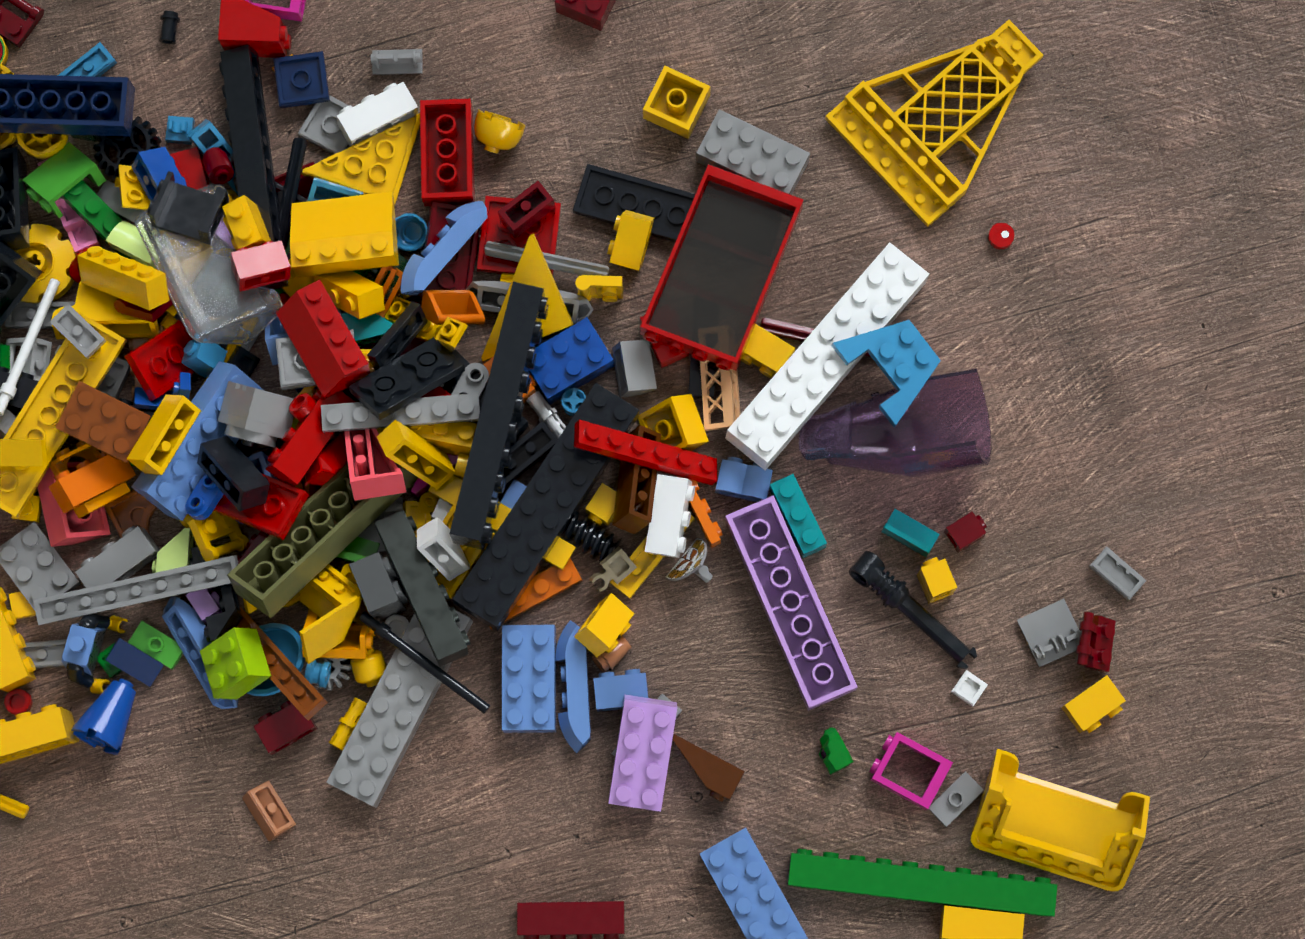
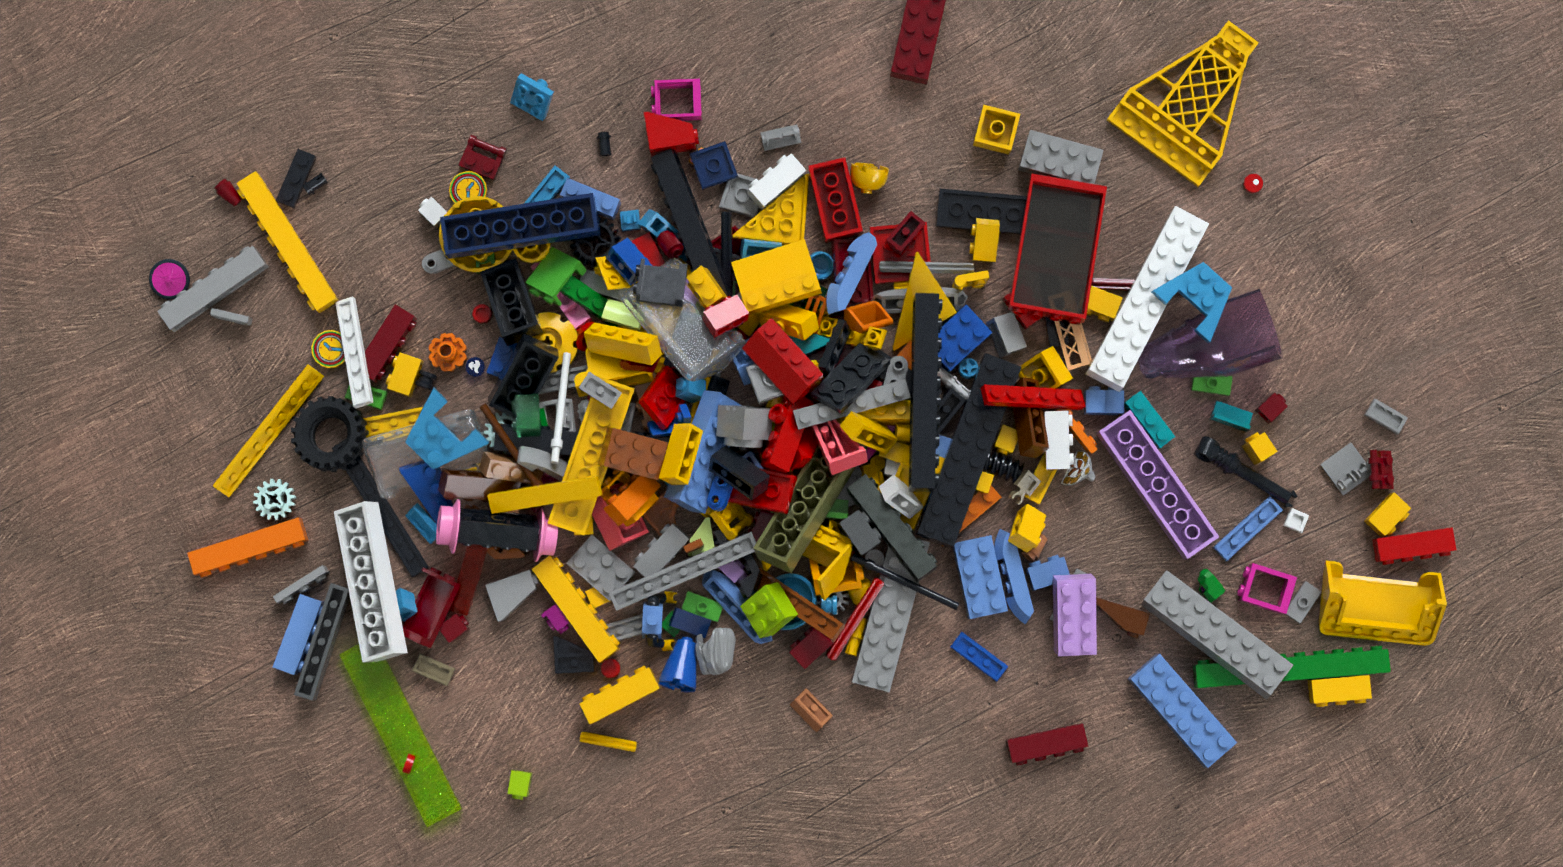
camera: 20 degrees left, 5 degrees up
(147, 99) = (606, 204): none -> medium blue brick
(157, 560) = (693, 546): none -> dark orange tile
(159, 707) = (717, 653): none -> light grey hair
(350, 700) = (855, 619): none -> red axle
(506, 784) = (979, 656): none -> blue tile
(827, 818) = (1216, 634): none -> light grey brick
(894, 486) = (1213, 385): none -> bright green plate
(902, 686) = (1247, 528): none -> medium blue tile
(1121, 752) = (1414, 544): none -> red brick

